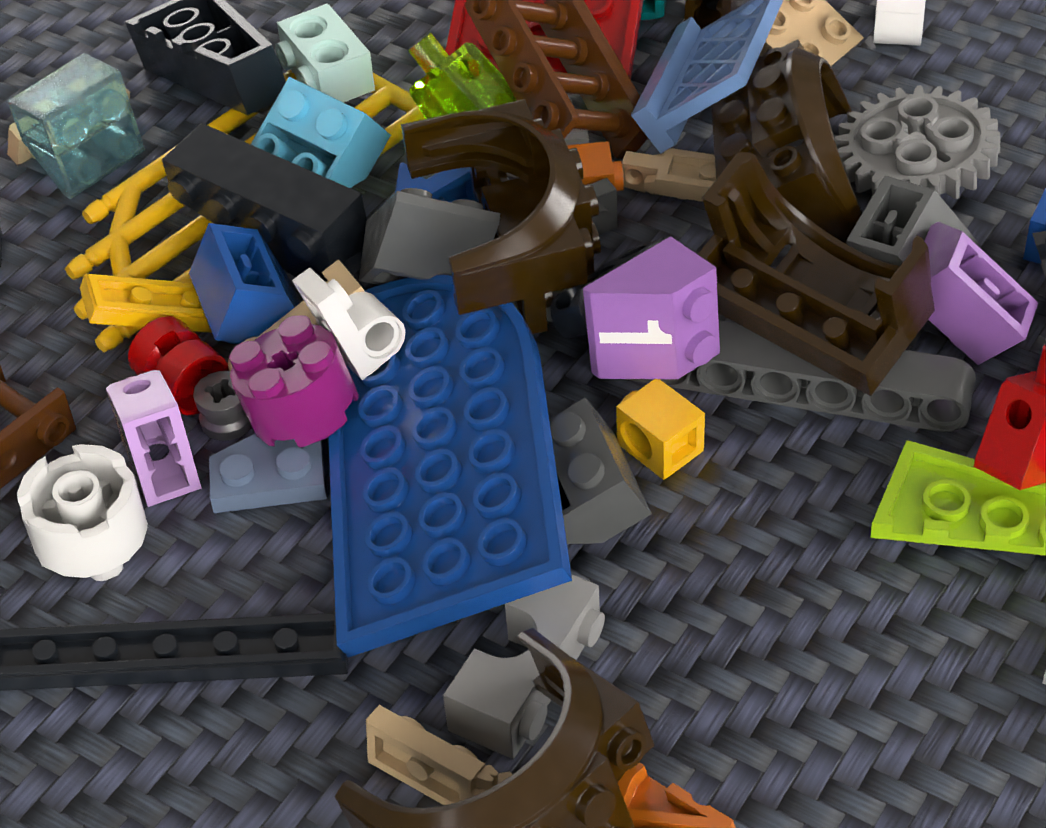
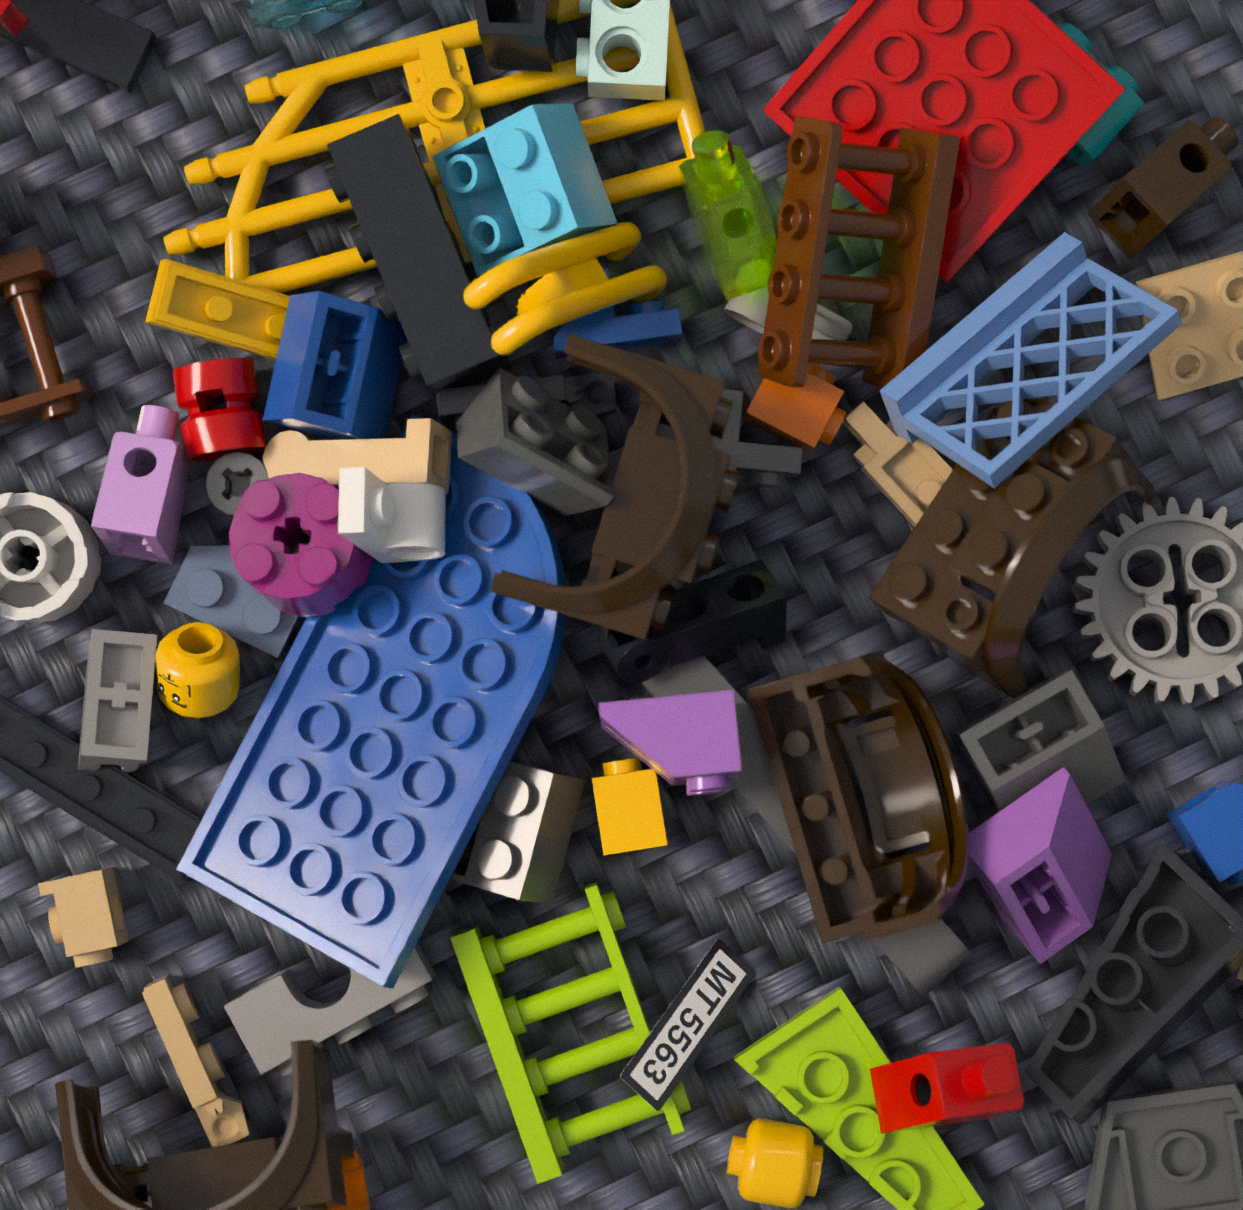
camera: 30 degrees right, 40 degrees up
(211, 559) = (117, 700): none -> light grey hinge
(266, 510) = (197, 670): none -> yellow head
(279, 717) = (86, 915): none -> tan brick
(375, 150) = (570, 283): none -> yellow piece
(722, 628) = (507, 1018): none -> lime fence
(818, 517) = (687, 1025): none -> sticker
(965, 573) = (775, 1163): none -> yellow head

